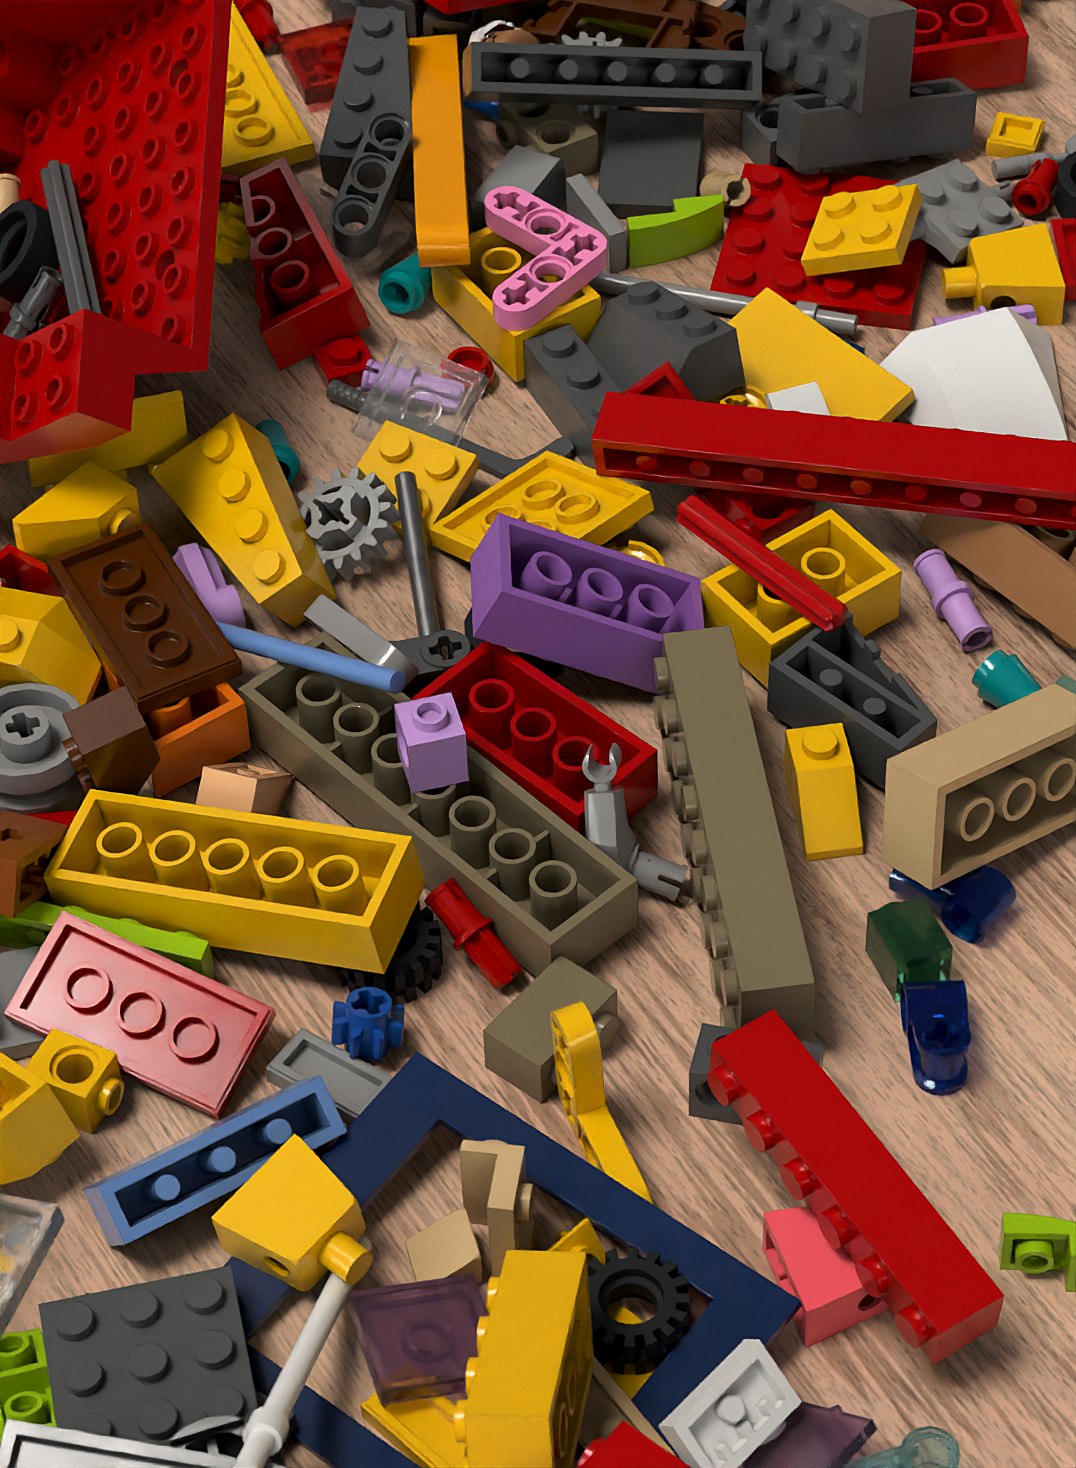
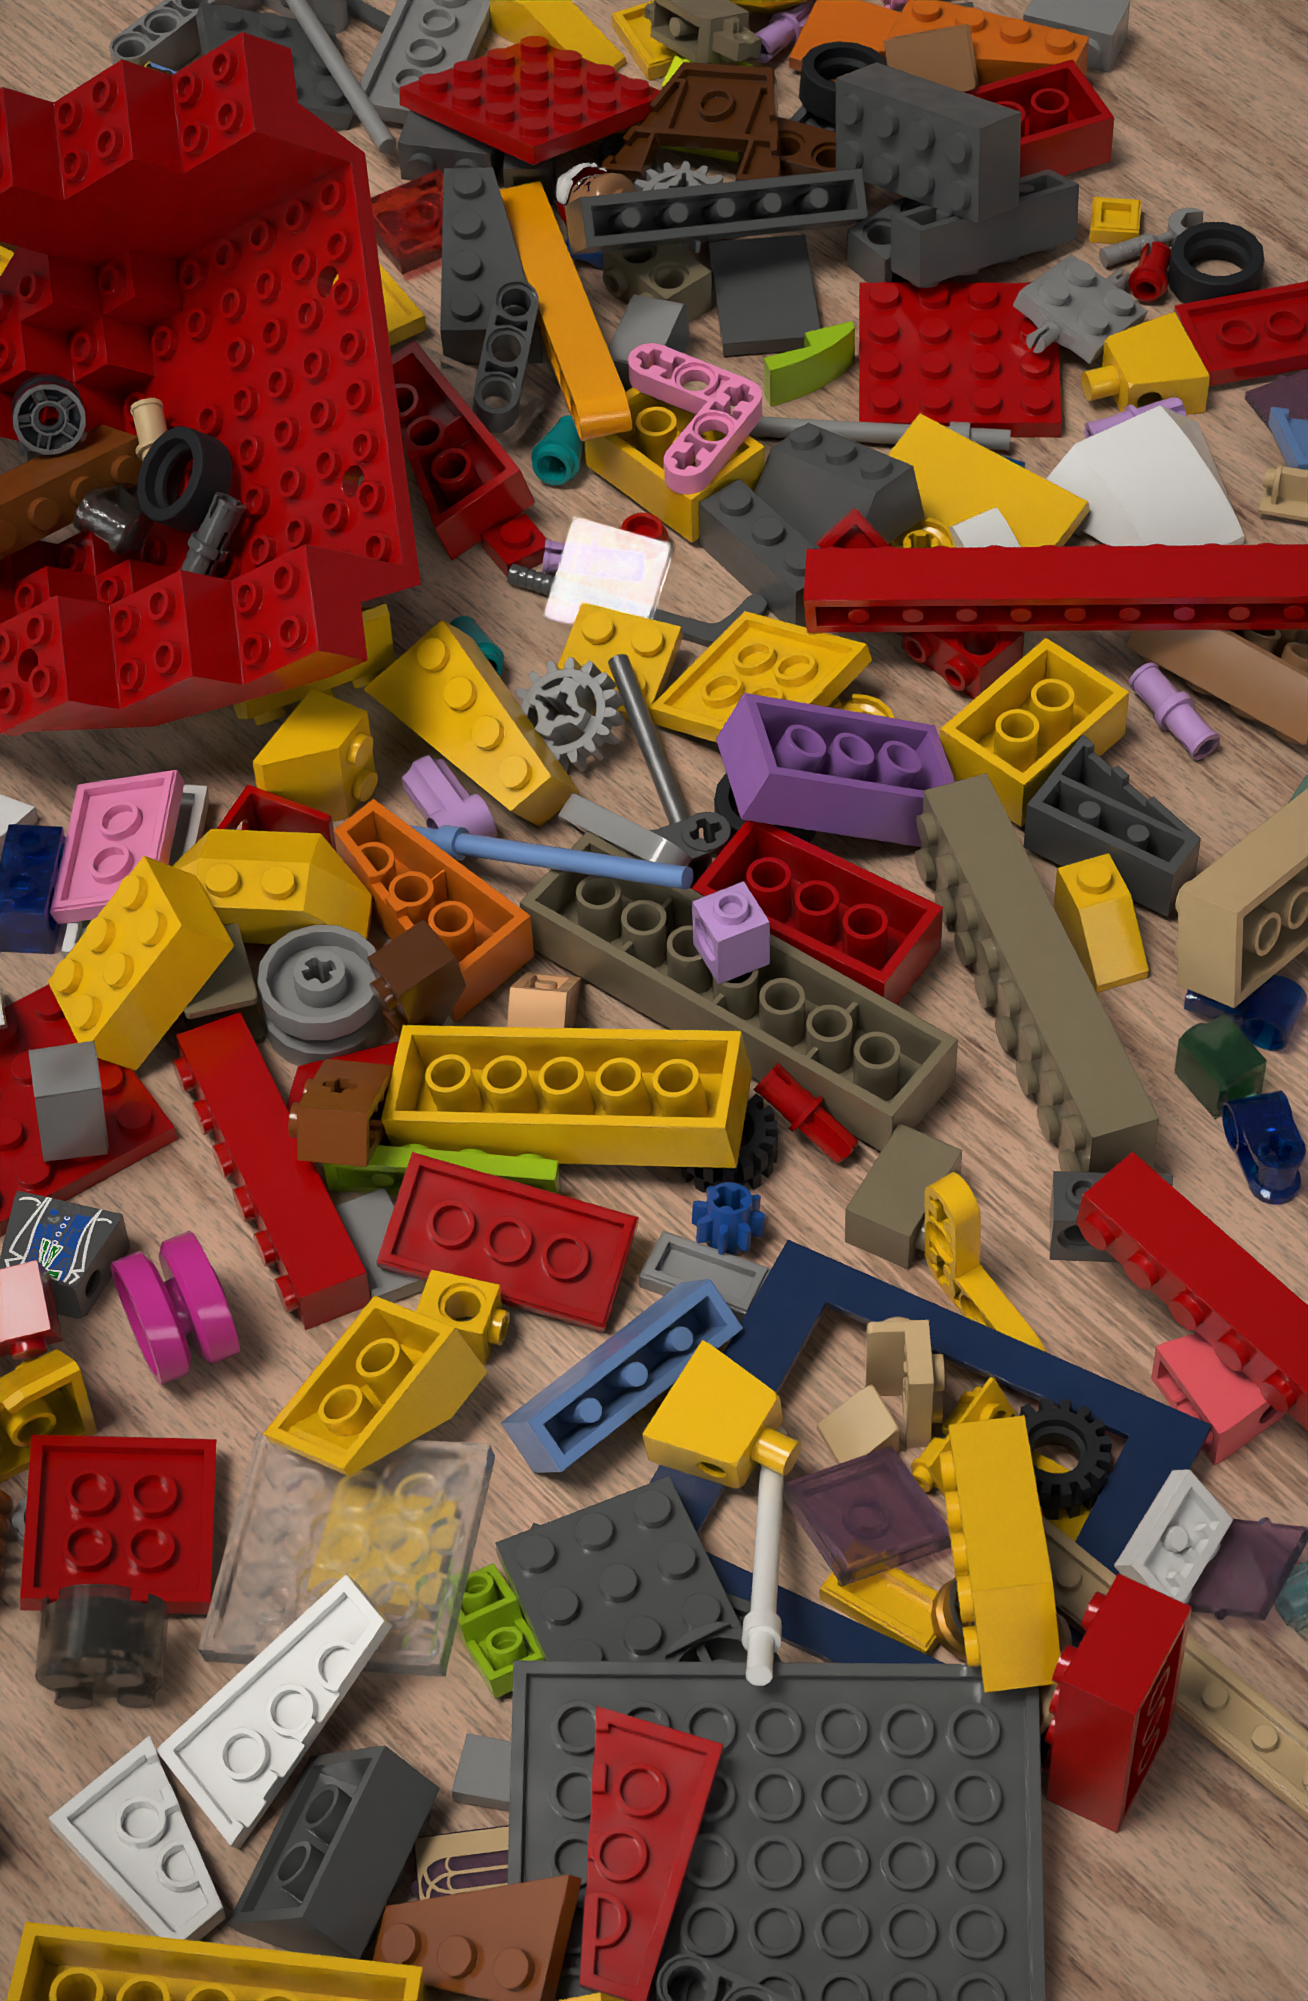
camera: 10 degrees left, 5 degrees up
(69, 238) = (243, 470): dark grey axle -> none
(144, 617) = (408, 842): reddish brown tile -> none
(589, 208) = (717, 348): light grey tile -> none
(609, 829) = (915, 991): light grey arm -> none
(734, 190) = (845, 309): tan pin -> none
(762, 563) = (996, 704): red axle -> none
(862, 230) = (1000, 342): yellow plate -> none
(1003, 679) = (1250, 790): teal cone -> none

